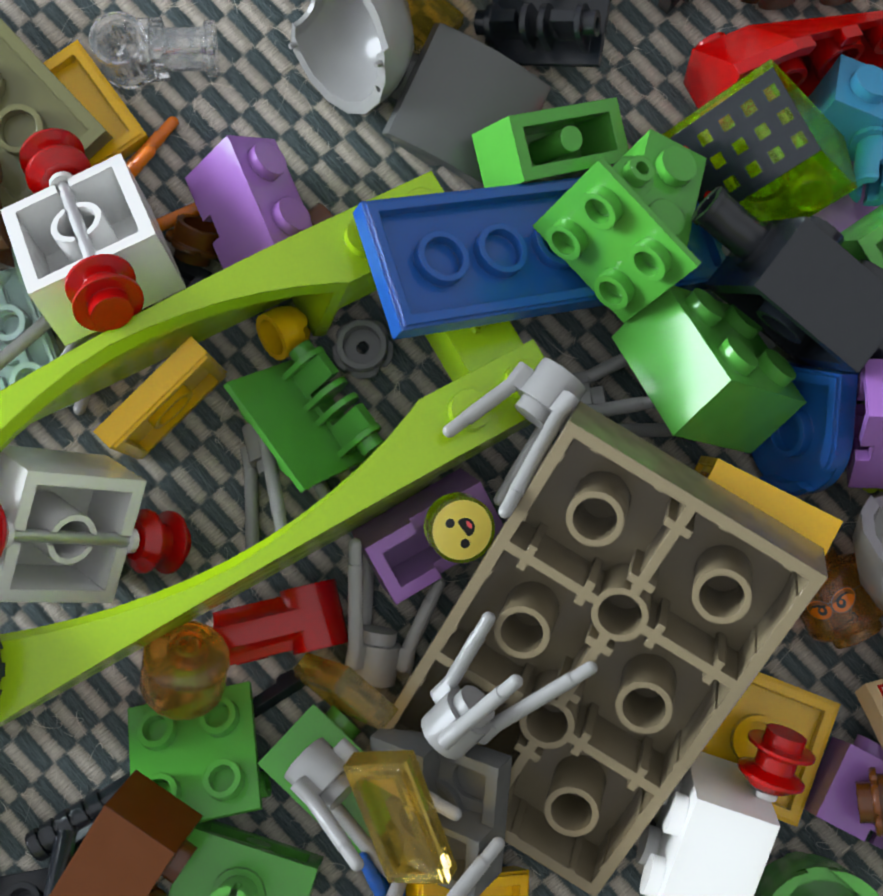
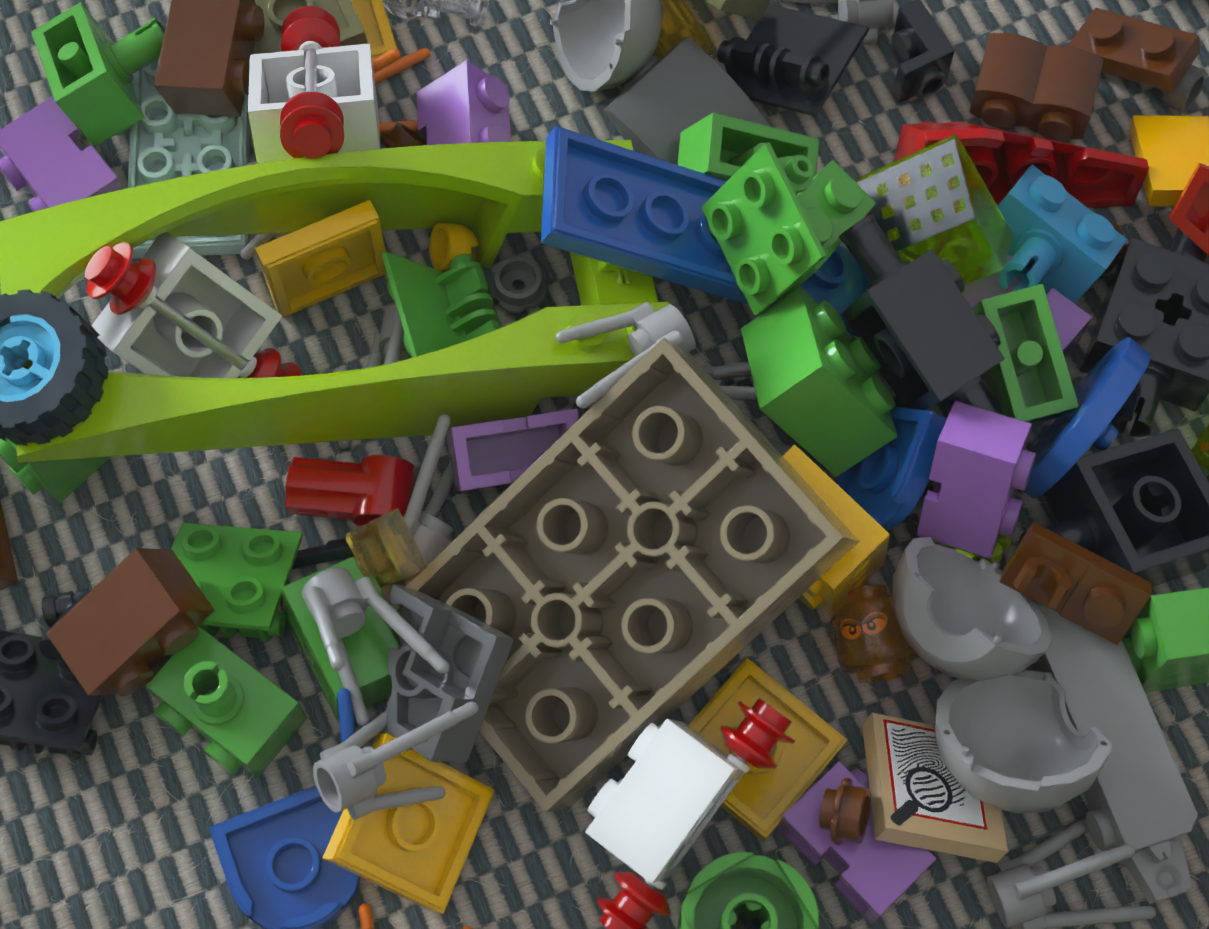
camera: 15 degrees right, 15 degrees down
(185, 671) = (249, 486): clear orange head -> none
(400, 816) = (392, 656): clear yellow tile -> none
(459, 527) = (537, 431): light yellow tile -> none
(468, 715) = (483, 578): light grey plant -> none

